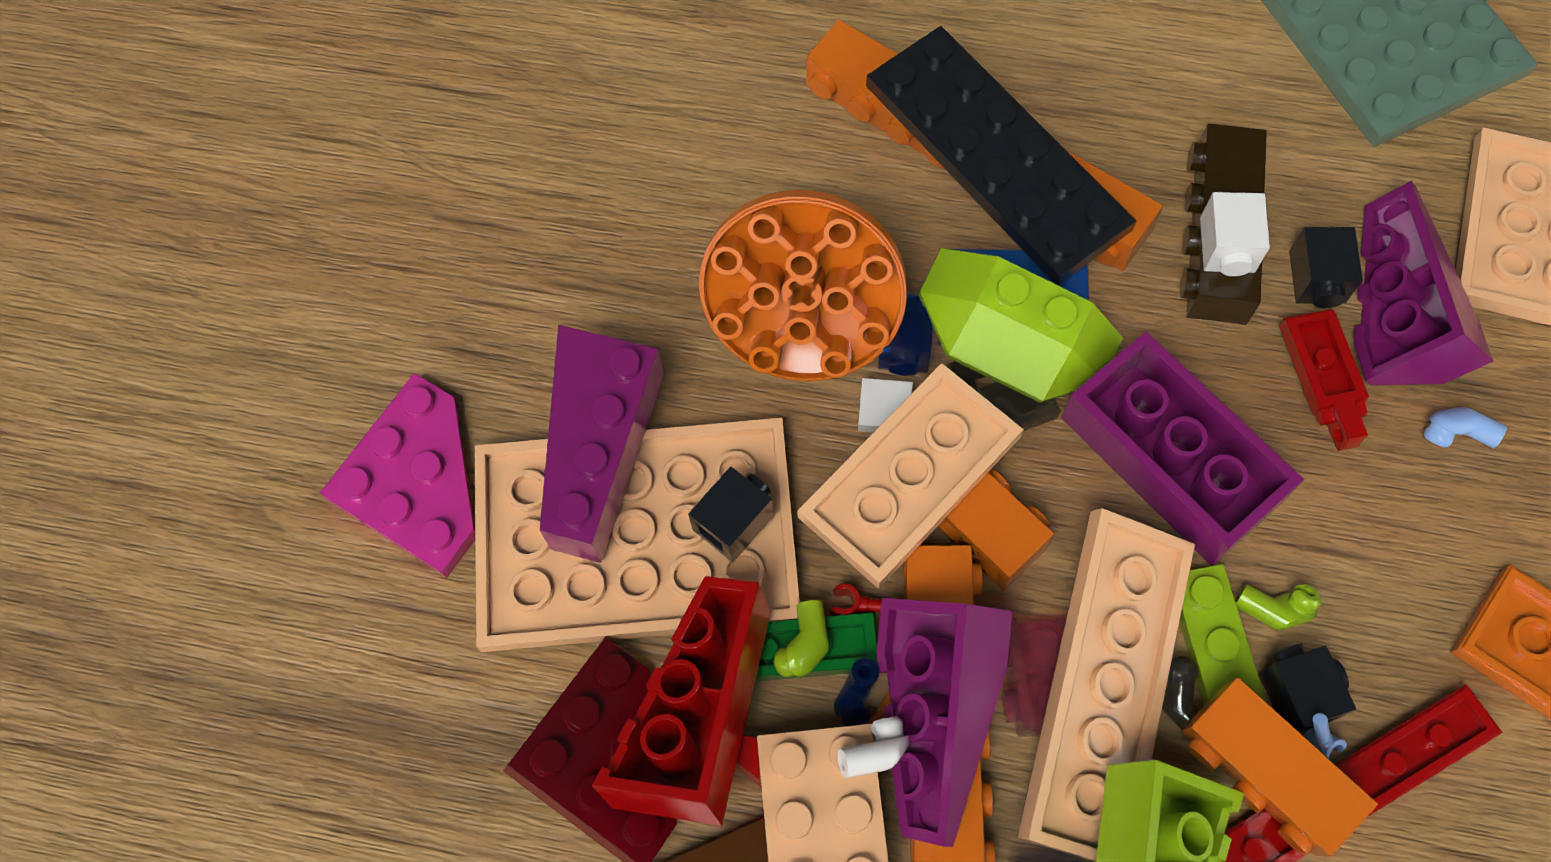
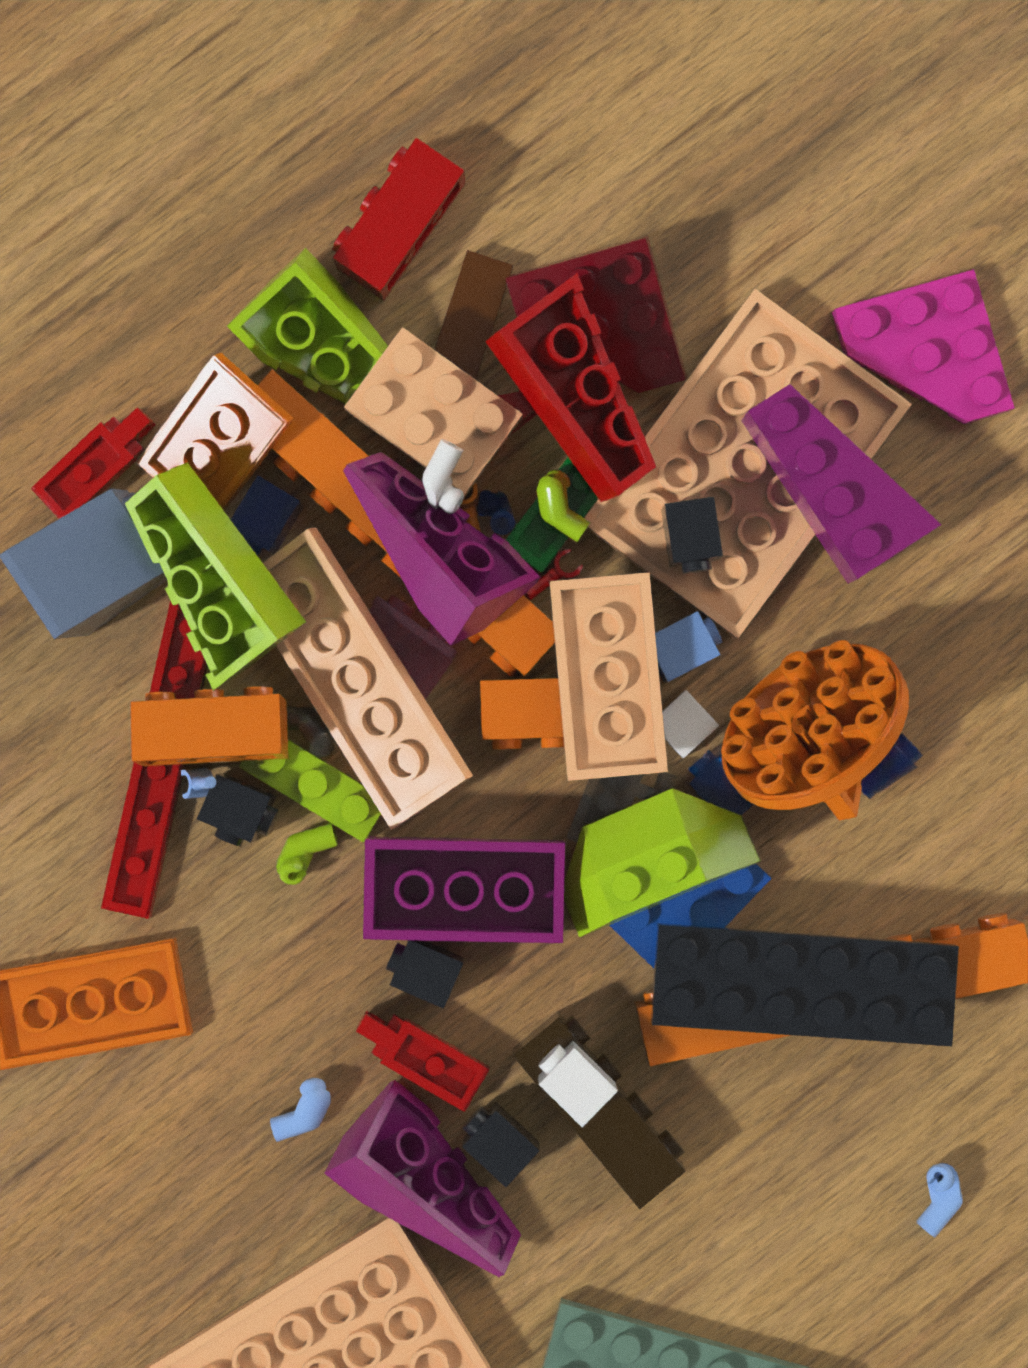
camera: 130 degrees right, 20 degrees up
(821, 448) = (686, 646): none -> medium blue brick
(1273, 418) = (424, 970): none -> black brick

